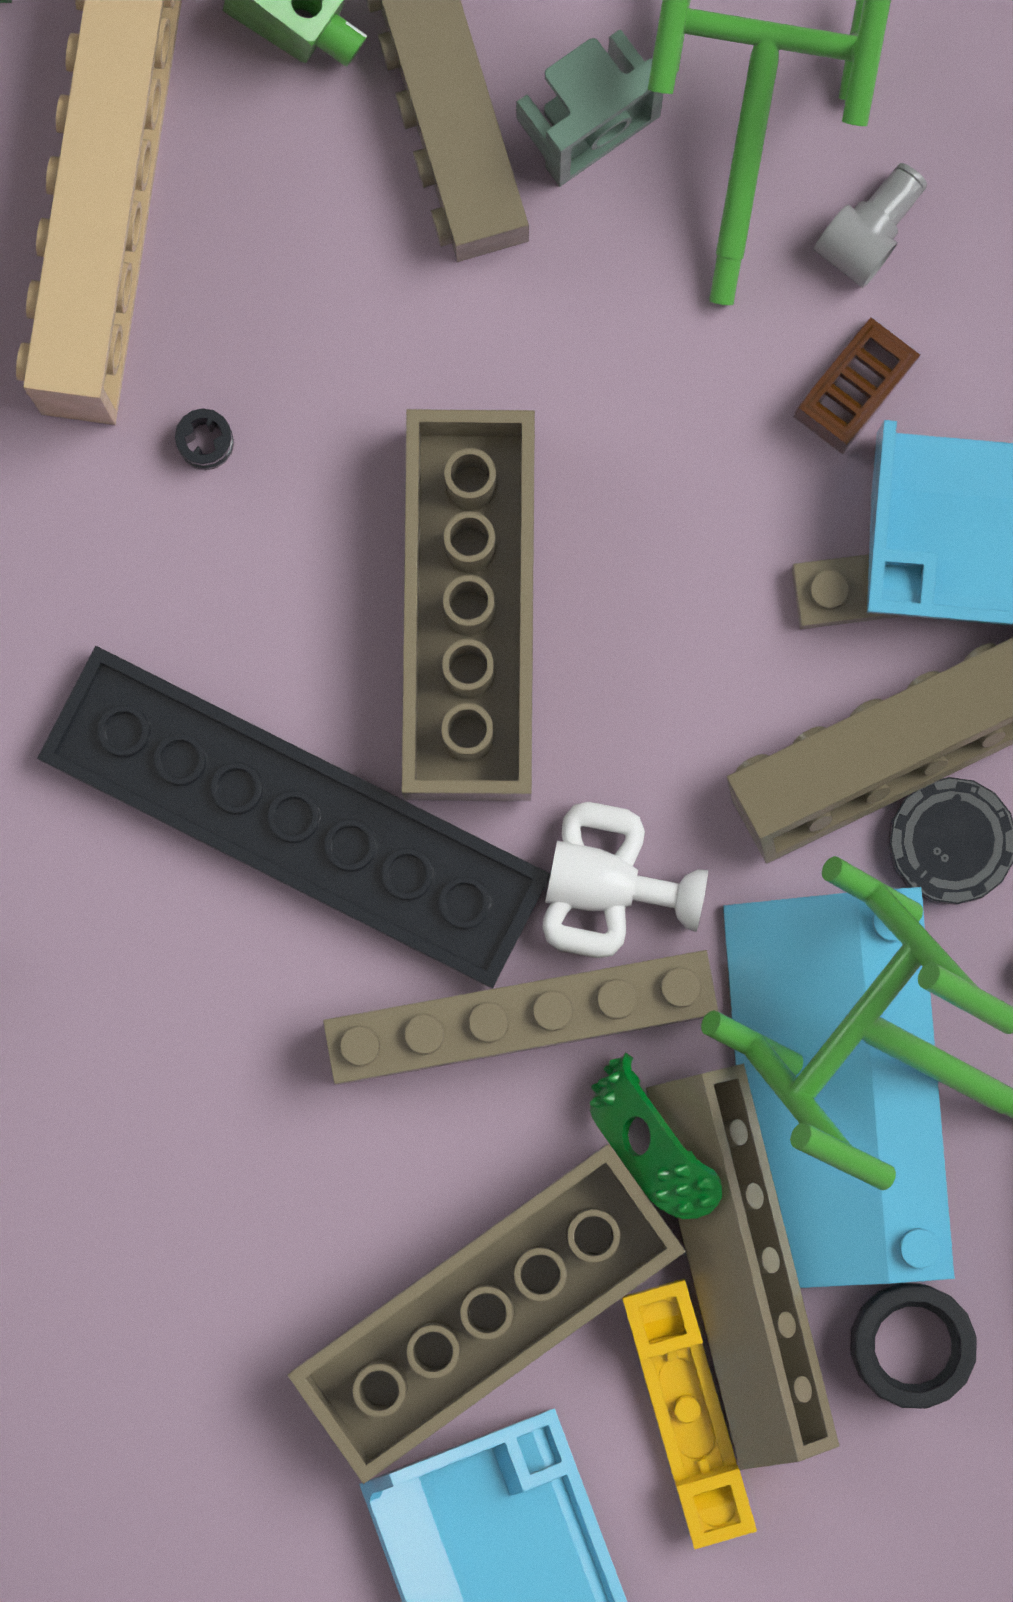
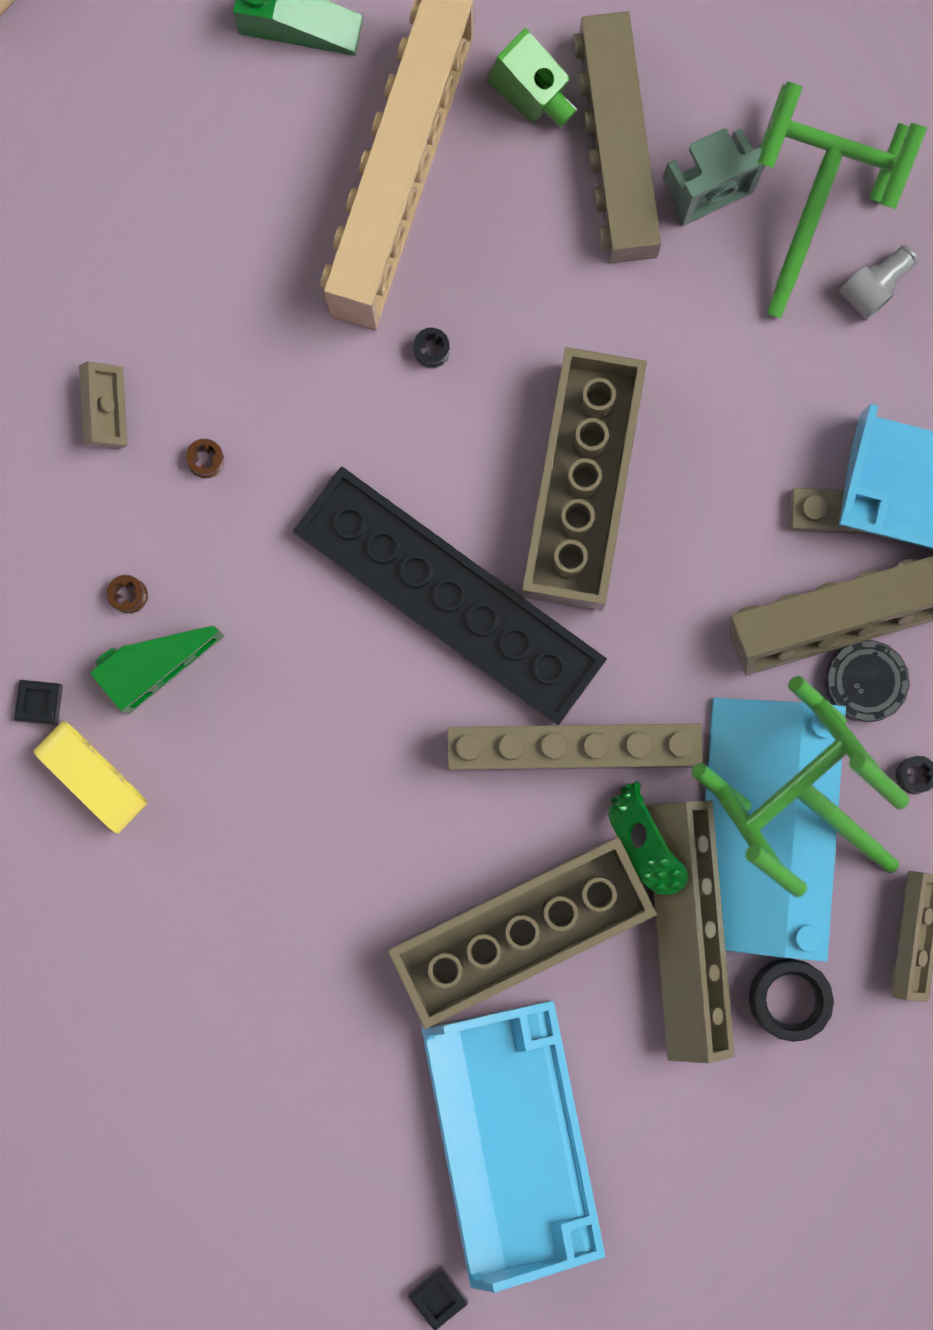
camera: 10 degrees right, 0 degrees up
(608, 882) = (643, 670): white piece -> none
(689, 1413) = (639, 1019): yellow slope -> none
(826, 423) = (829, 403): reddish brown slope -> none

